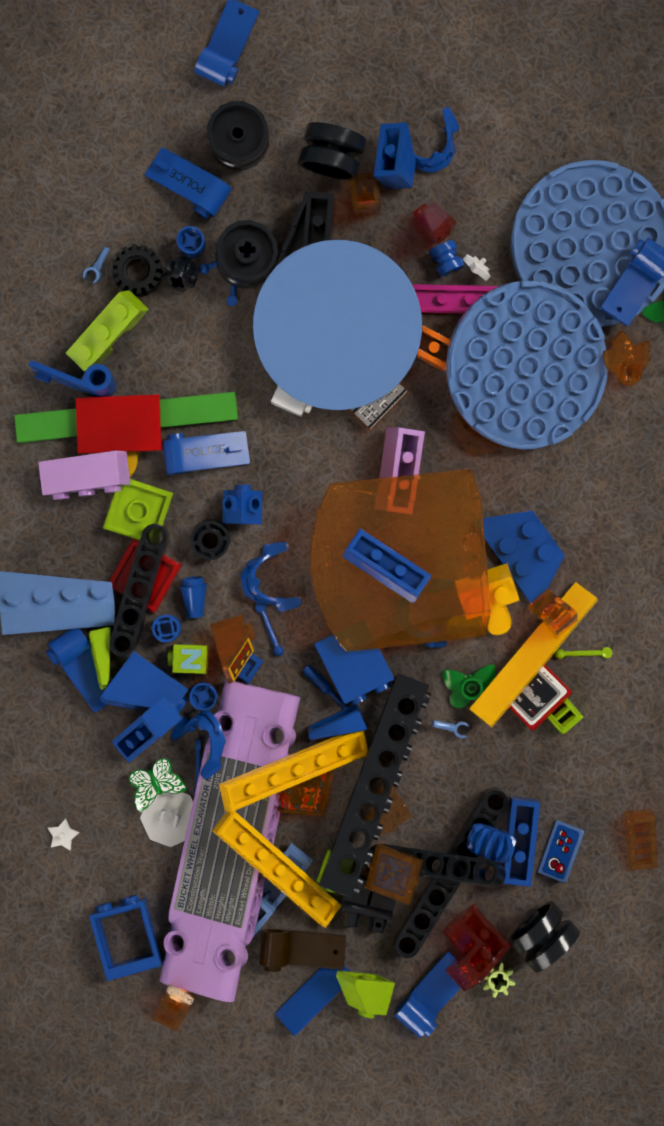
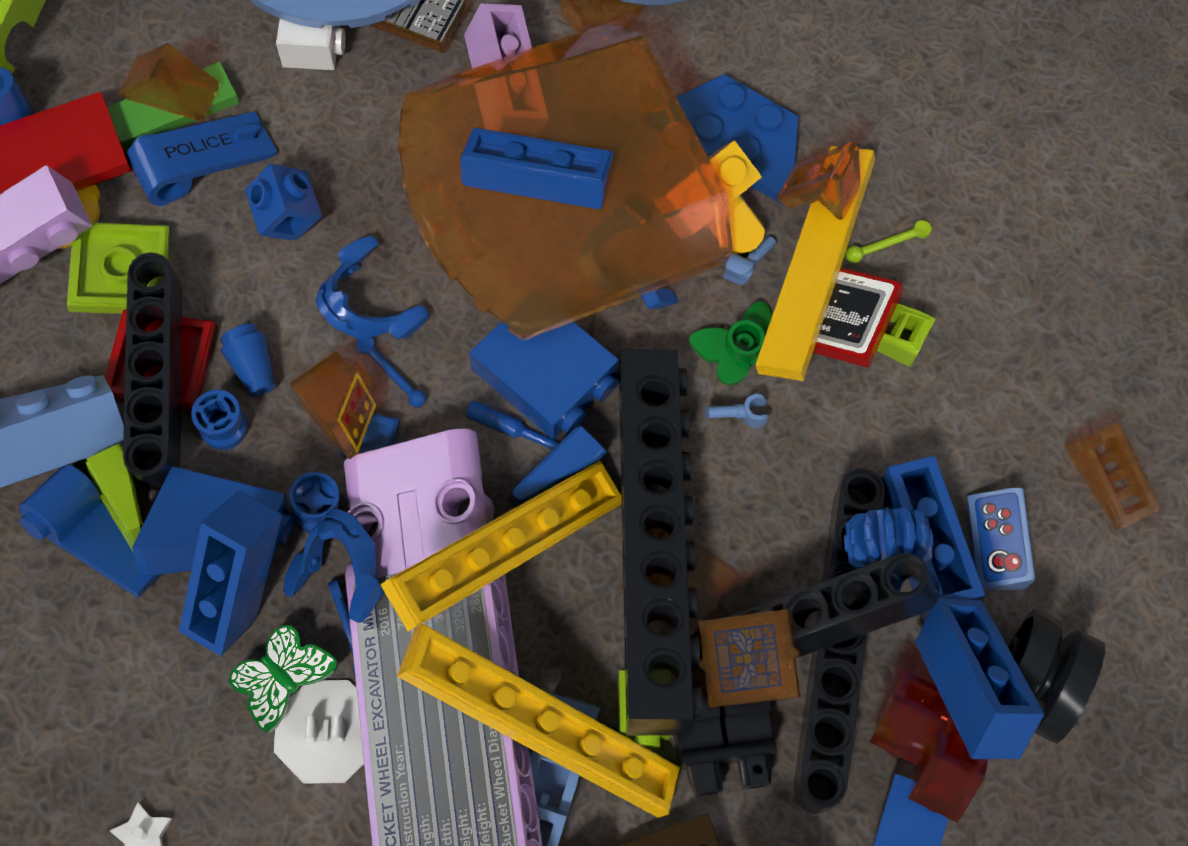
camera: 20 degrees left, 20 degrees down
(189, 658) = (272, 453): lime brick -> none
(199, 402) = (170, 83): none -> clear orange slope
(210, 552) = (246, 247): black wheel -> none
(307, 797) = (547, 592): clear orange tile -> none
(490, 640) = (740, 268): none -> medium blue hand
(502, 985) = (998, 802): yellowish green gear -> none
(503, 929) = (978, 679): none -> blue brick

